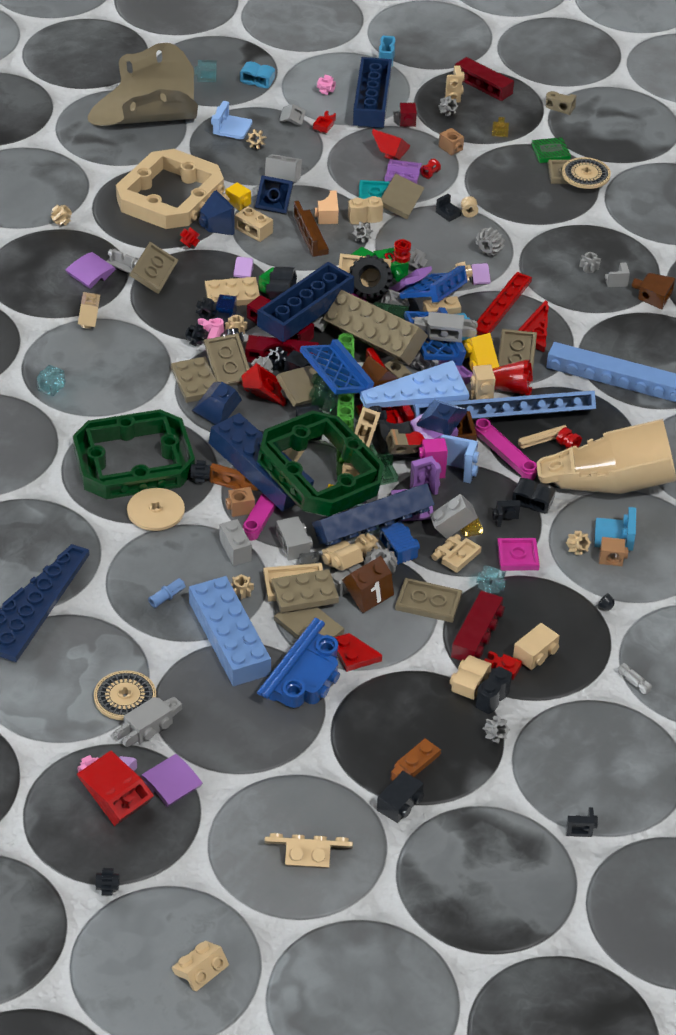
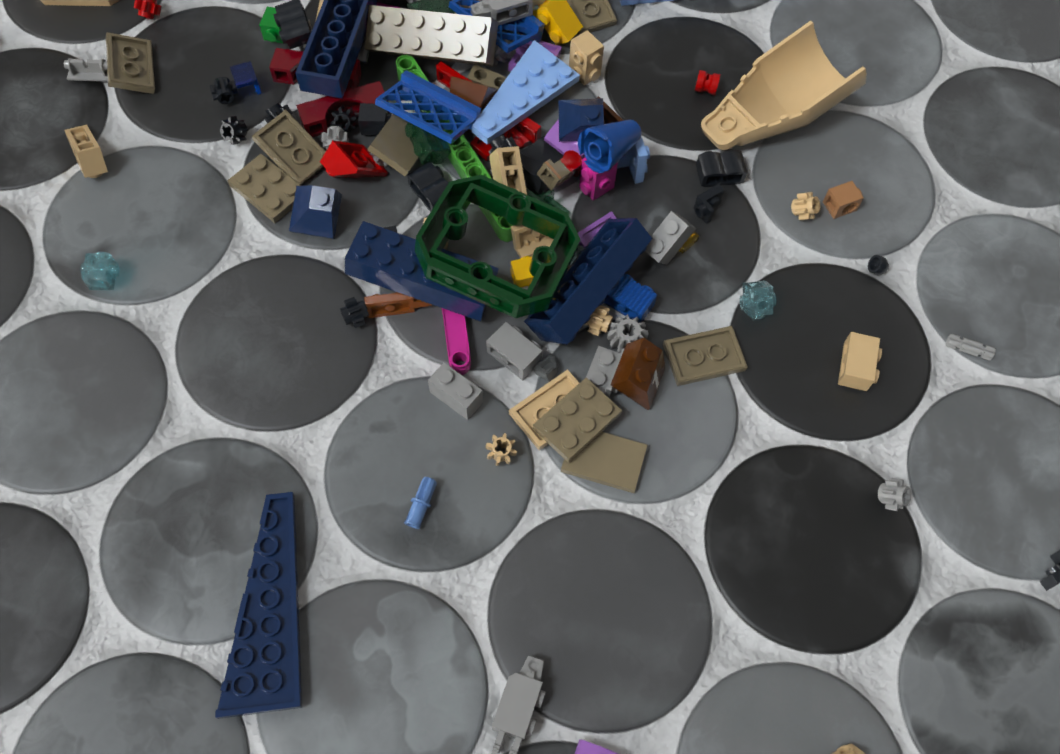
camera: 30 degrees left, 20 degrees up
(90, 269) = (55, 96): medium lavender slope -> none
(92, 458) = (243, 281): dark green panel -> none
(110, 691) = (442, 674): piece -> none
(155, 509) = (346, 400): tan piece -> none
(213, 326) = (247, 109): bright pink bar -> none
(229, 631) = (528, 520): medium blue brick -> none
(236, 321) = (270, 96): tan gear -> none
(240, 501) = (428, 322): medium nougat brick -> none
(243, 267) = (231, 19): lavender slope -> none
(244, 288) = (238, 49): tan plate -> none
(305, 670) = (649, 531): blue brick -> none
(342, 555) = (587, 350): tan brick -> none
(355, 653) = (675, 469): red wing -> none
(400, 797) = (862, 648): black brick -> none
(416, 759) = (837, 583): dark orange hinge -> none
(425, 471) = (605, 196): medium lavender bracket -> none
(445, 433) = (608, 143): none -> blue cone
(460, 554) = (700, 282): tan plate -> none
(469, 676) = (820, 437): tan brick -> none
(478, 626) = (782, 367): dark red brick -> none
(493, 690) = (856, 443): black brick -> none
(505, 449) = (659, 126): dark pink piece -> none
(506, 662) = (837, 398): red plate -> none
(514, 377) = (611, 30): red cone -> none
(518, 554) = (752, 248): dark pink tile -> none
(522, 405) = (629, 68): medium blue brick -> none
(540, 437) = (677, 90): tan axle -> none
(616, 528) = (831, 169): dark azure bracket -> none

